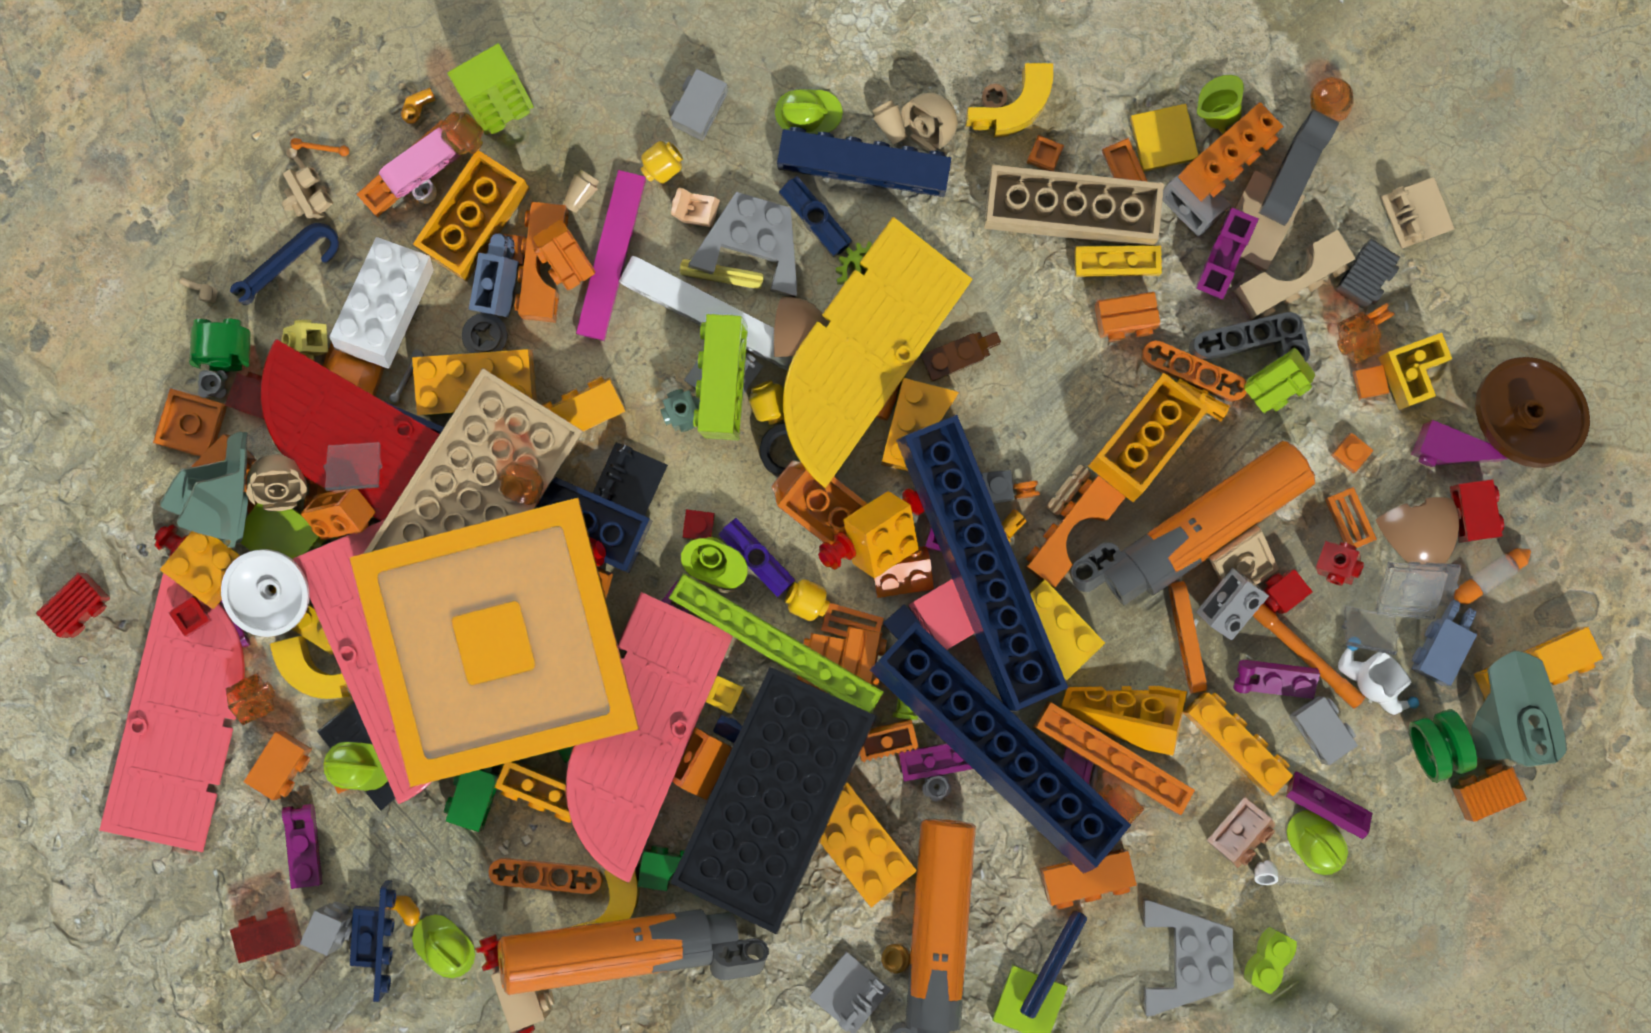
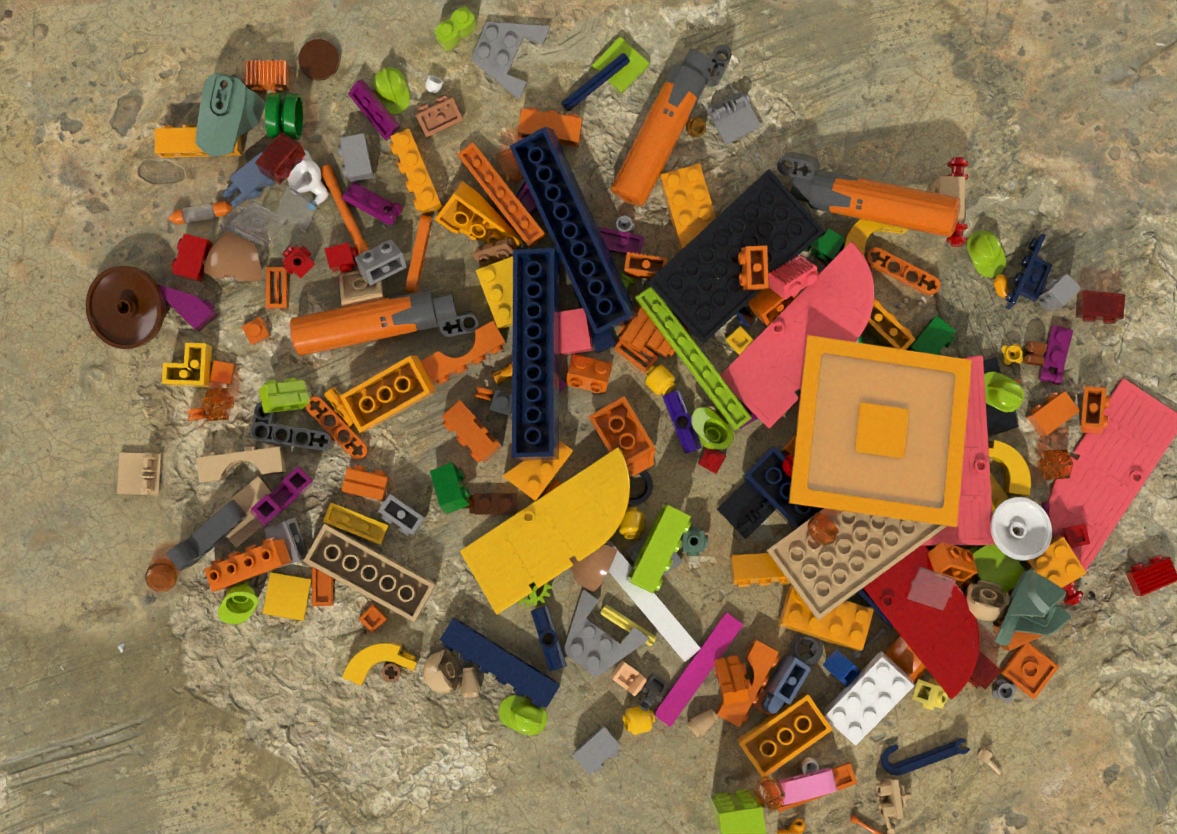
camera: 160 degrees left, 0 degrees up
(219, 345) = (990, 713): green brick -> none
(226, 791) = (1093, 410): none -> orange brick
(329, 836) = (1035, 353): none -> dark orange wheel
(356, 831) = (1016, 349): none -> yellow plate
(430, 327) = (841, 668): none -> blue brick
(656, 206) = (655, 690): none -> dark grey plate
(687, 802) = (793, 277): none -> coral brick
(742, 790) = (754, 268): none -> orange brick
(876, 534) = (597, 402): light orange brick -> none
(1018, 351) = (450, 488): none -> green brick
(1021, 433) = (471, 432): none -> orange wedge
(1064, 293) = (401, 514): none -> light grey brick
(1068, 489) = (455, 383): tan axle -> none
(1097, 673) = (493, 253): none -> medium nougat hinge
(1368, 273) = (191, 445): dark grey brick -> none
(1422, 685) = (280, 158): none -> clear red brick
(1431, 843) = (318, 59): none -> reddish brown tile

